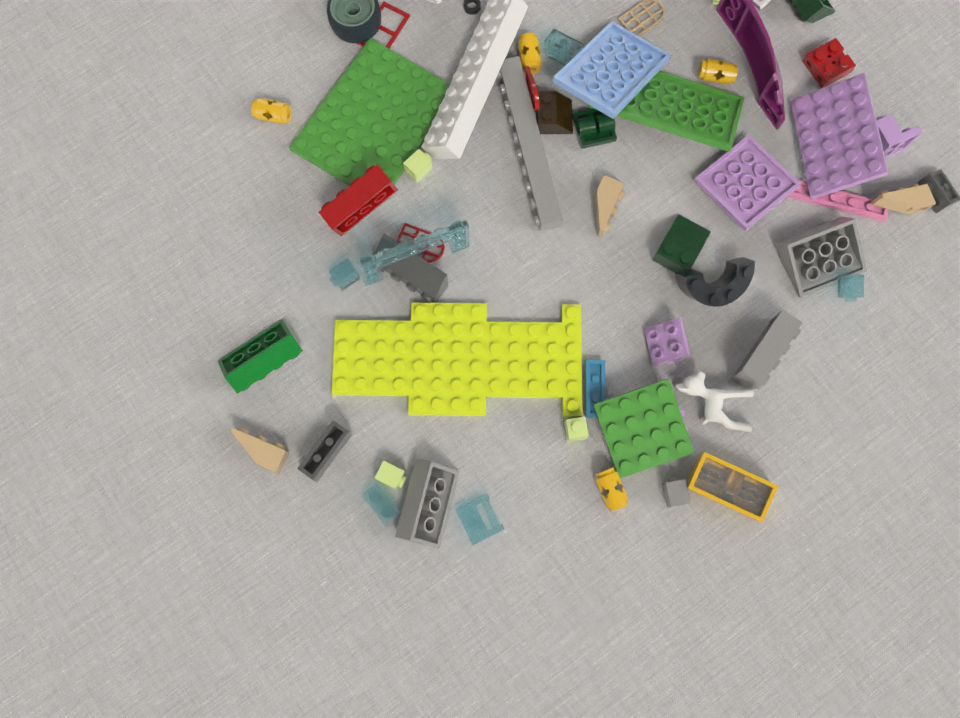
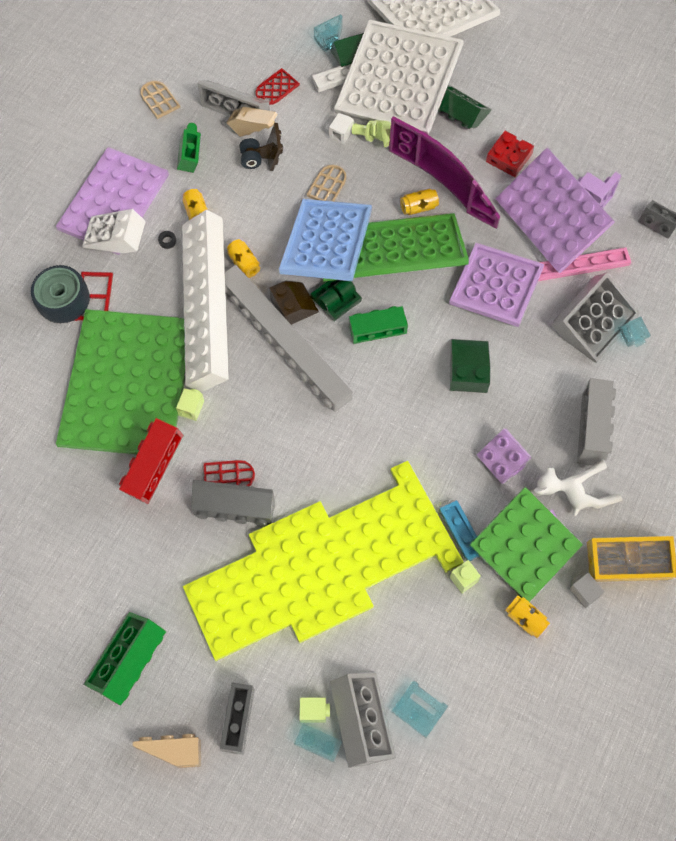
camera: 25 degrees left, 10 degrees down
(271, 110) = (14, 420): yellow piece -> none
(343, 275) = (170, 539): clear light blue brick -> none
(456, 235) = (261, 451): clear light blue plate -> none
(532, 88) = (264, 287): red window -> none
(561, 47) = (271, 240): clear light blue brick -> none
(605, 200) = (380, 356): tan slope -> none
(620, 168) = (378, 324): none -> green brick
(724, 290) = (527, 389): black brick -> none
(906, 201) = (641, 238): tan slope -> none

